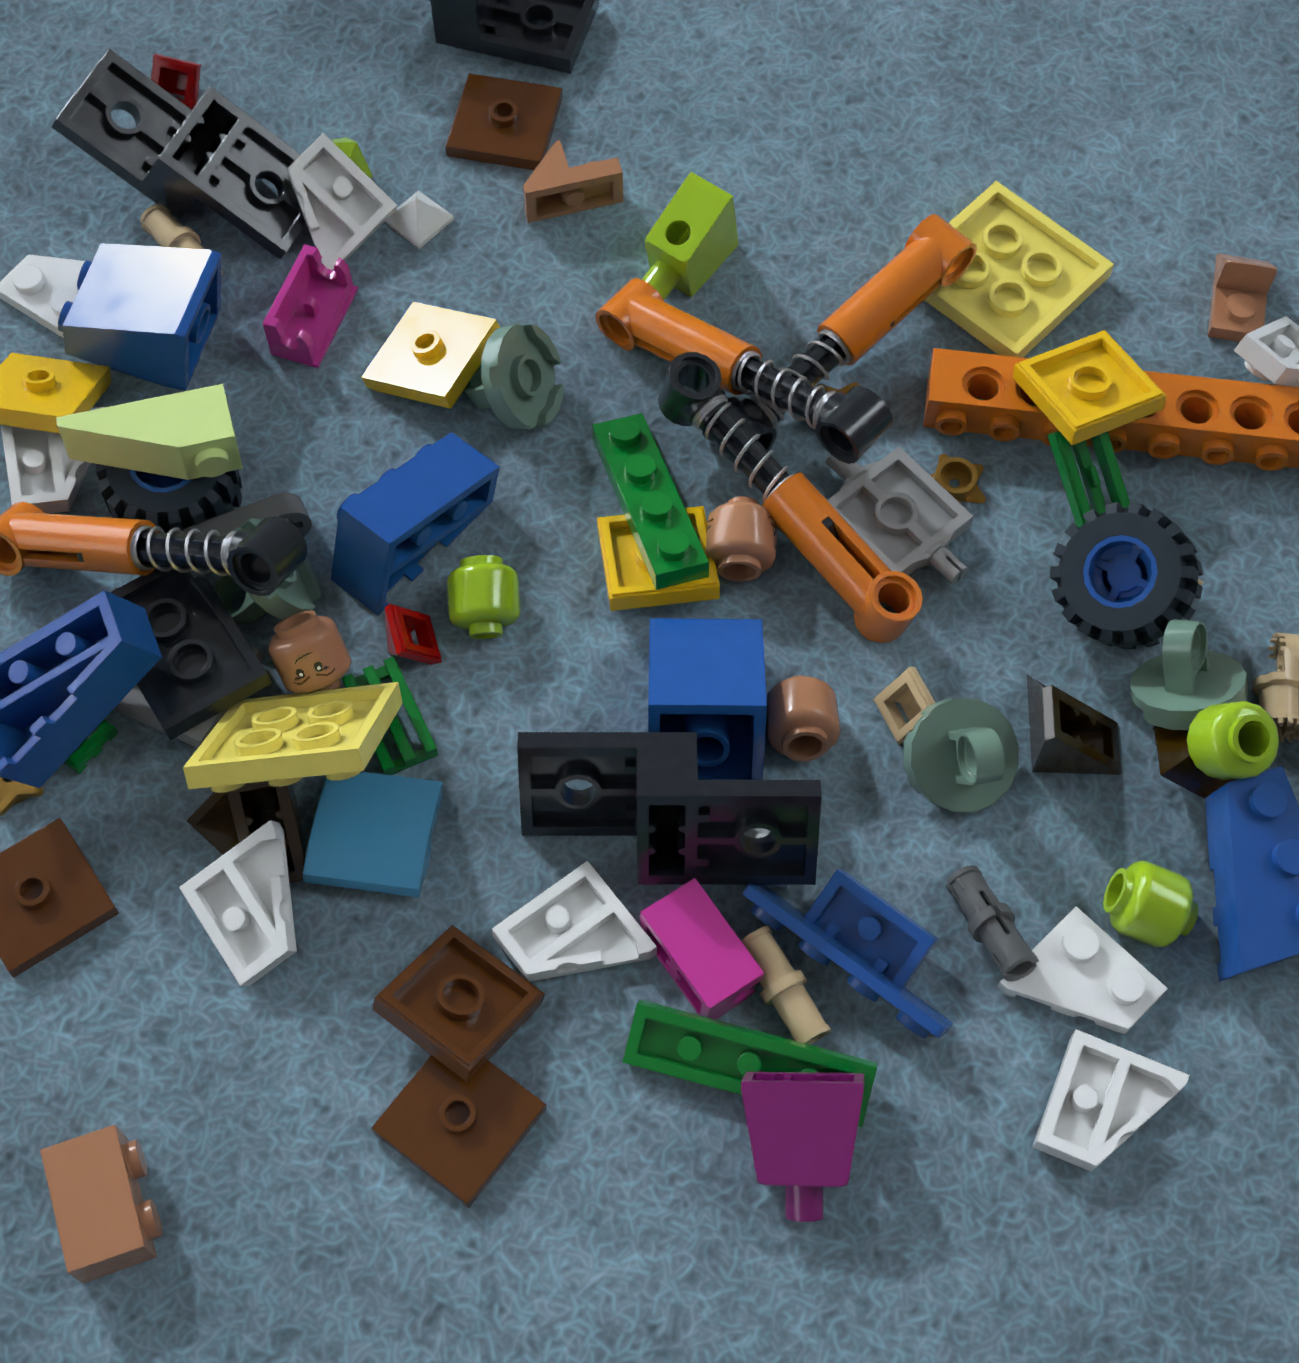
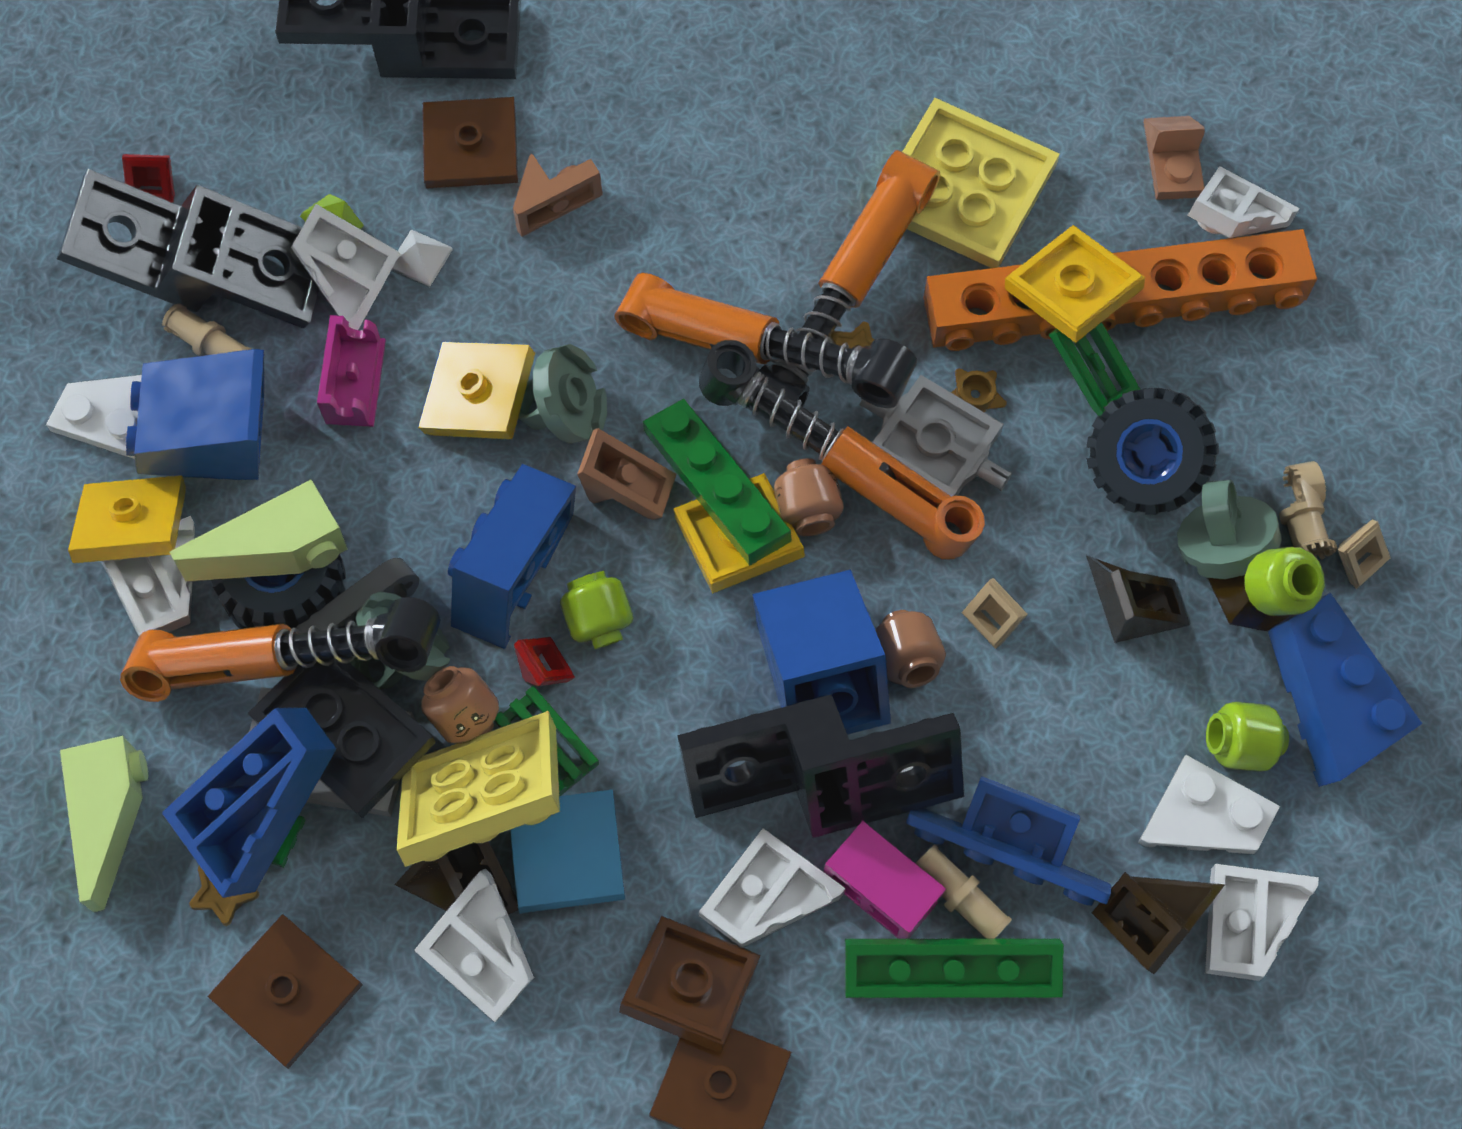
camera: 15 degrees left, 5 degrees up
(547, 463) = (625, 475): none -> nougat slope
(691, 237) = (680, 222): lime torso -> none
(802, 1133) = (1019, 1017): magenta torso -> none
(961, 754) = (1054, 646): sand green tile -> none
(991, 1066) = (1154, 914): none -> dark brown slope
(992, 923) = (1120, 789): dark grey pin -> none

